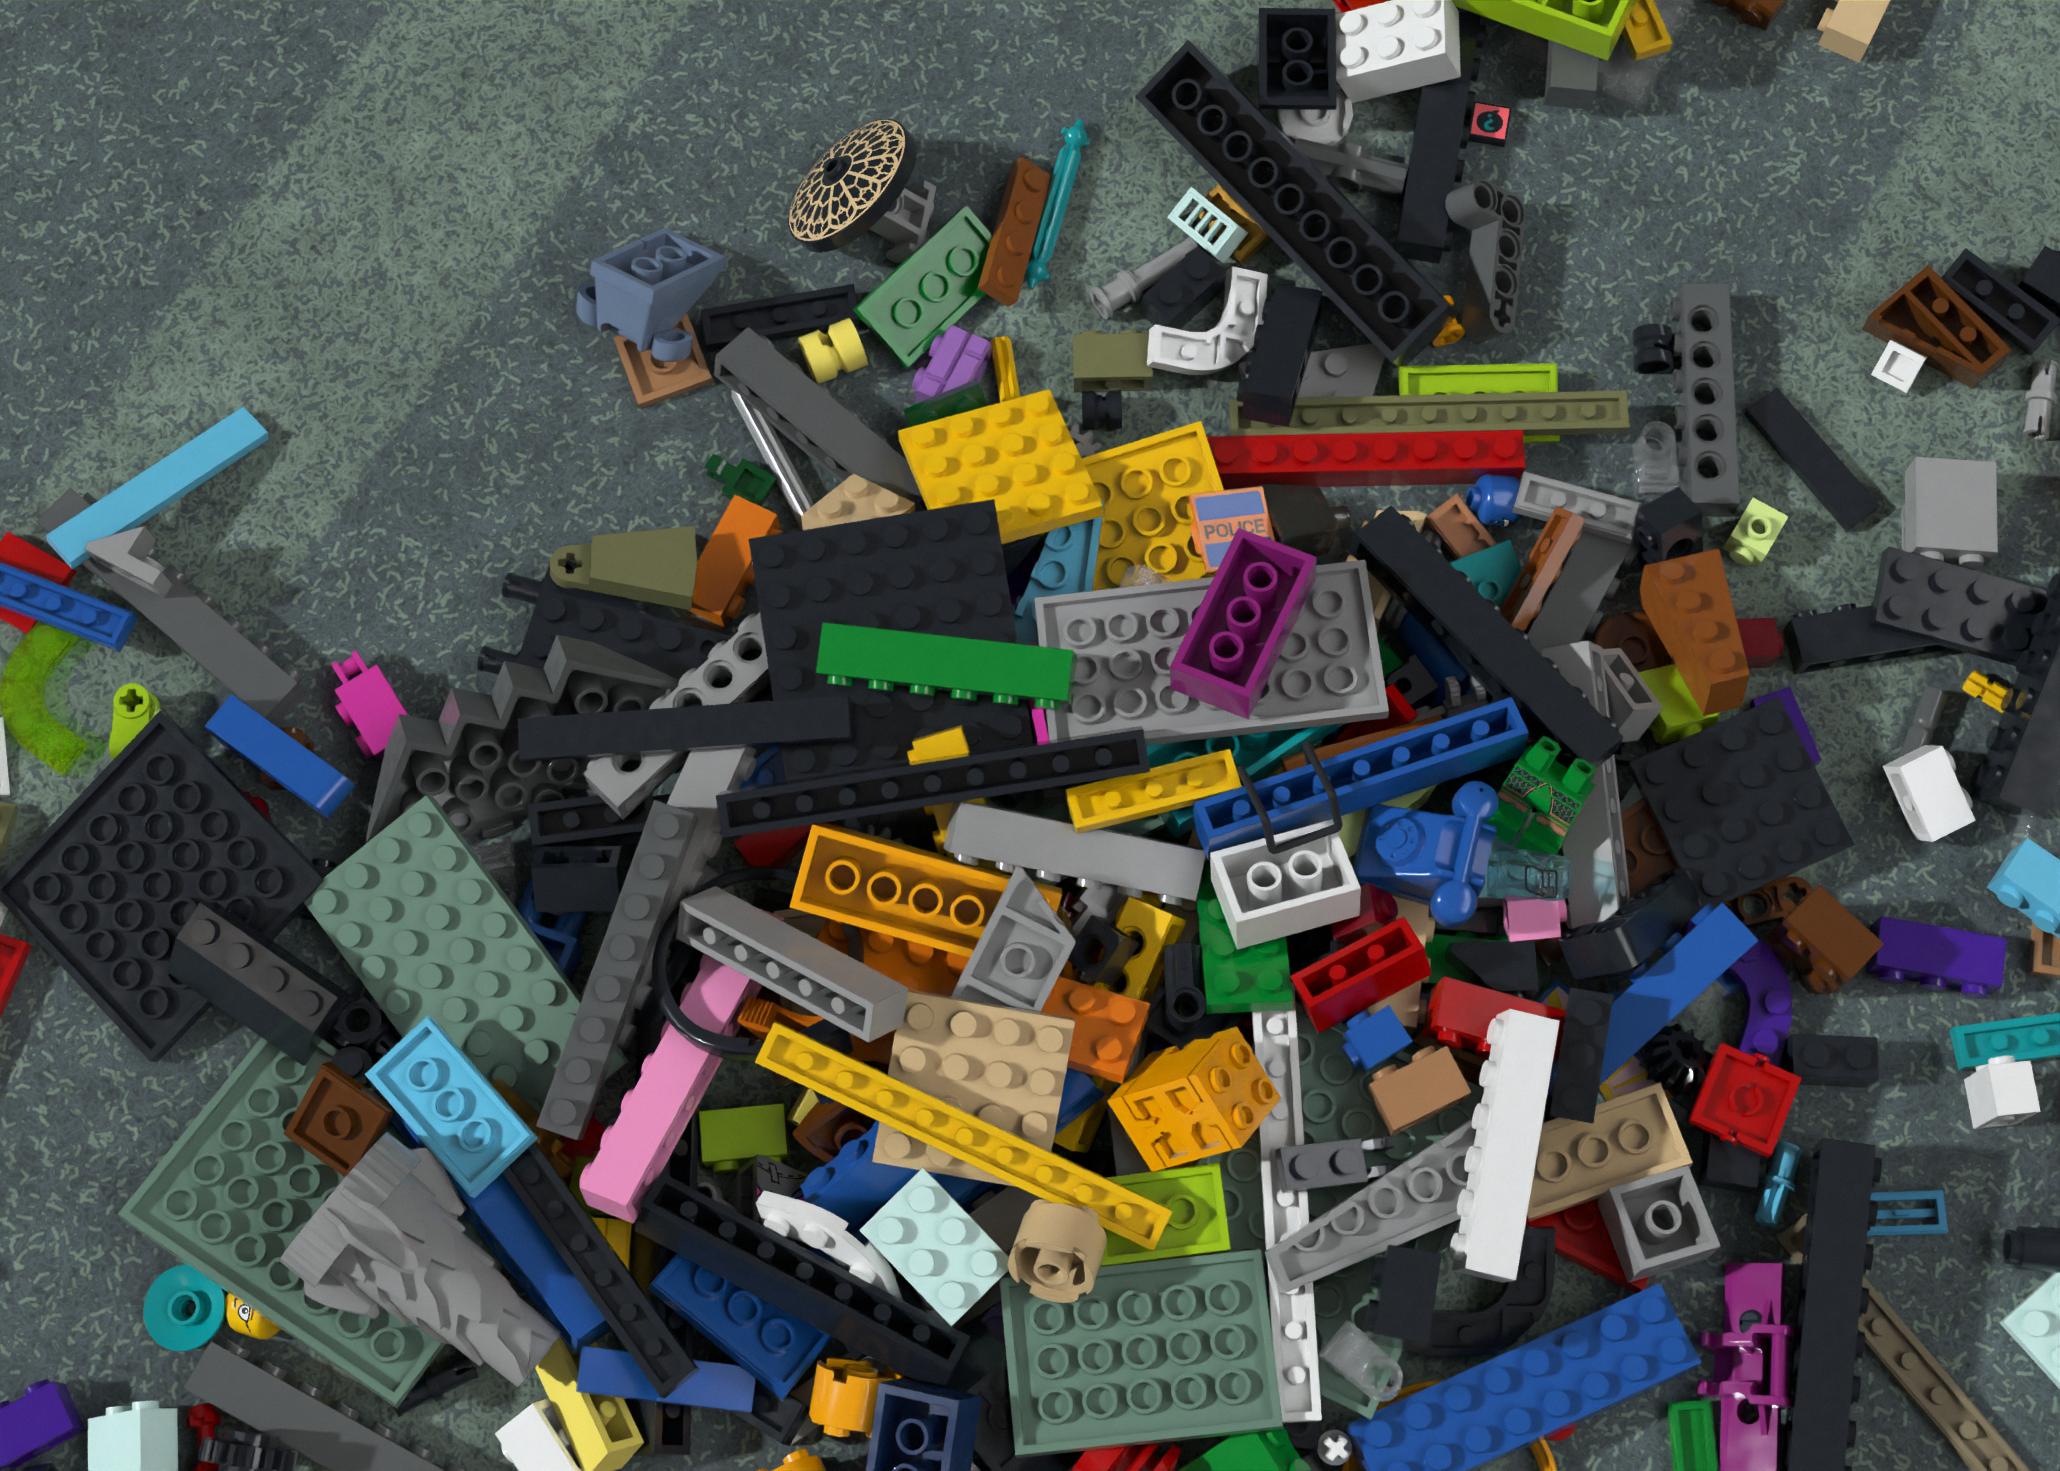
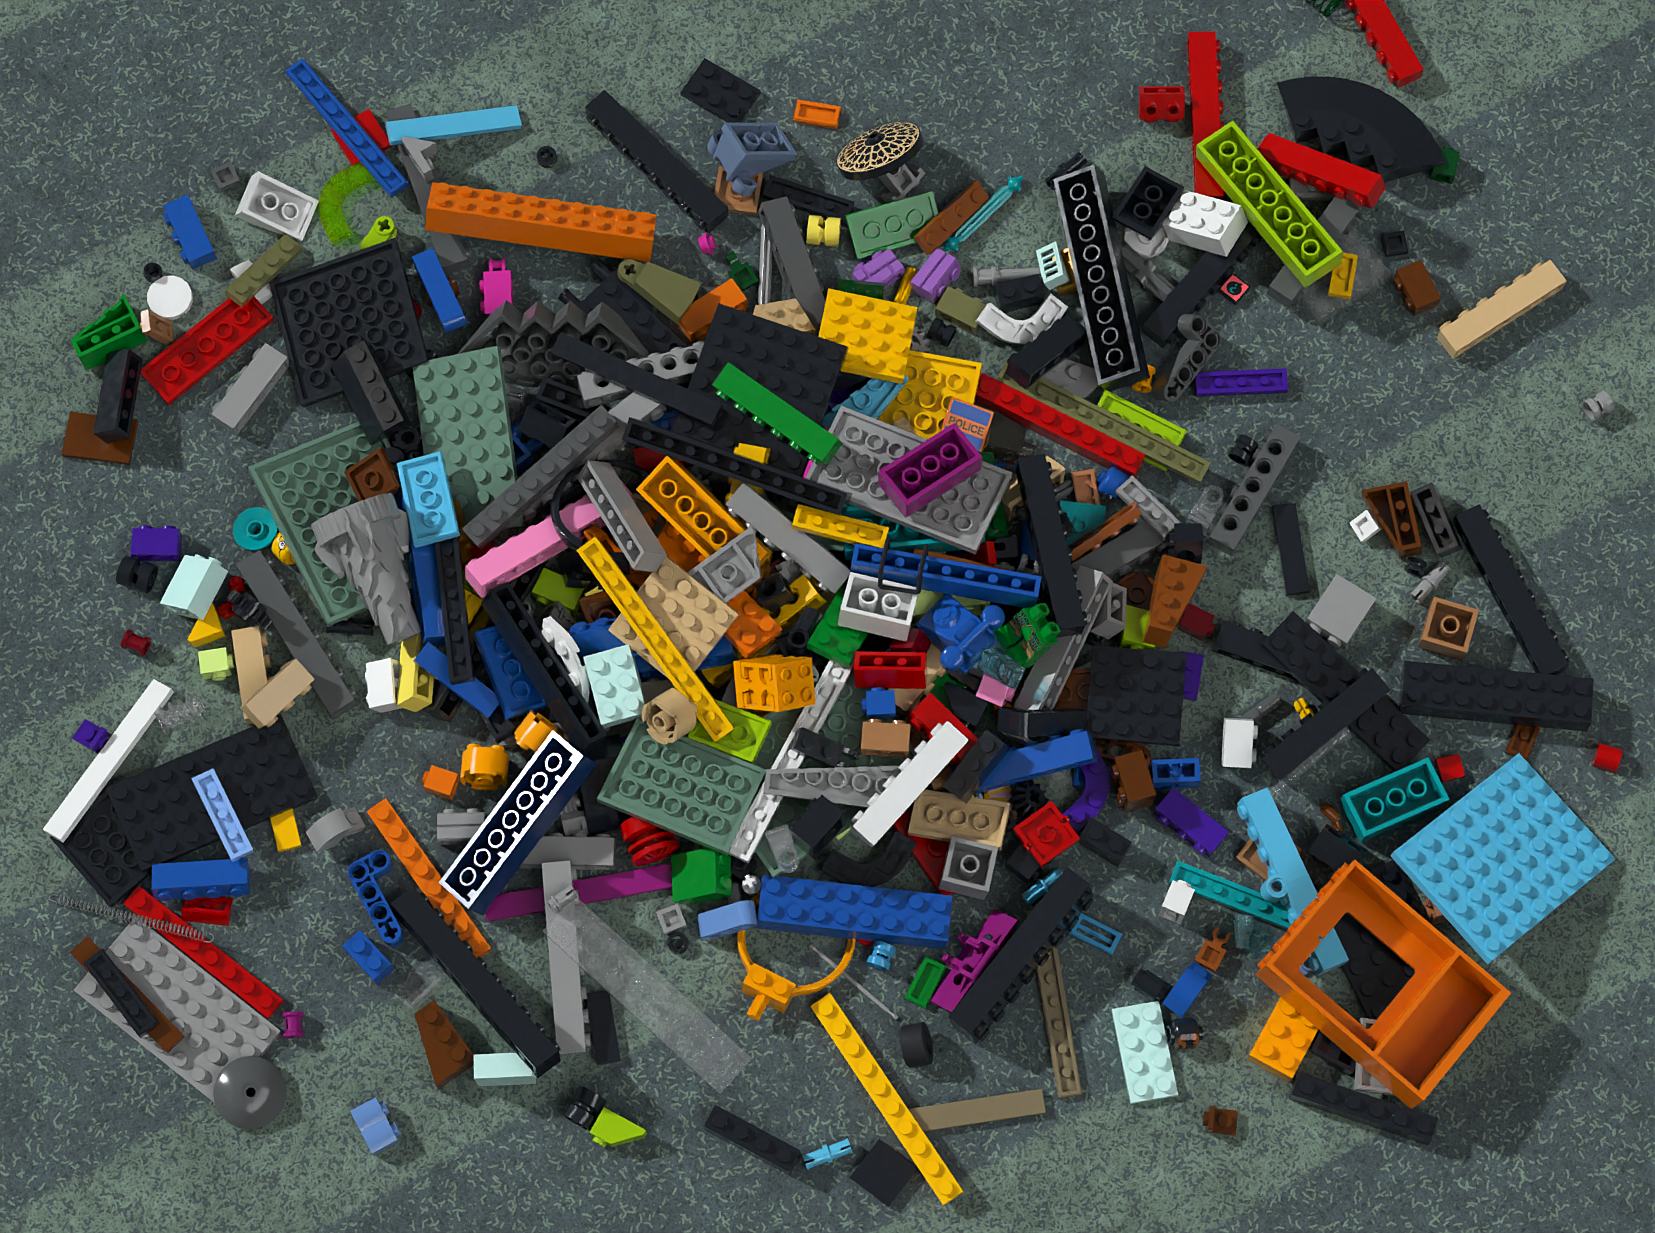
camera: 30 degrees right, 0 degrees up
(51, 1080) = (250, 389): none -> light grey brick
(327, 470) = (546, 164): none -> black bush
(382, 564) = (540, 222): none -> orange brick
(512, 379) = (656, 161): none -> black brick
(550, 227) = (720, 92): none -> black plate
(664, 463) = (707, 244): none -> dark pink plate
(718, 185) = (817, 114): none -> orange tile
(751, 1090) = (571, 570): none -> black slope
(1042, 330) = (935, 275): none -> medium lavender brick
(1138, 77) = (1070, 166): none -> black pin
(1587, 252) = (1241, 382): none -> dark purple plate
(1599, 1433) = (881, 955): none -> dark azure wheel
(1754, 533) = (1234, 570): yellowish green brick -> none
(1876, 887) = (1175, 773): none -> blue brick
(2007, 386) = (1415, 566): none -> black bush

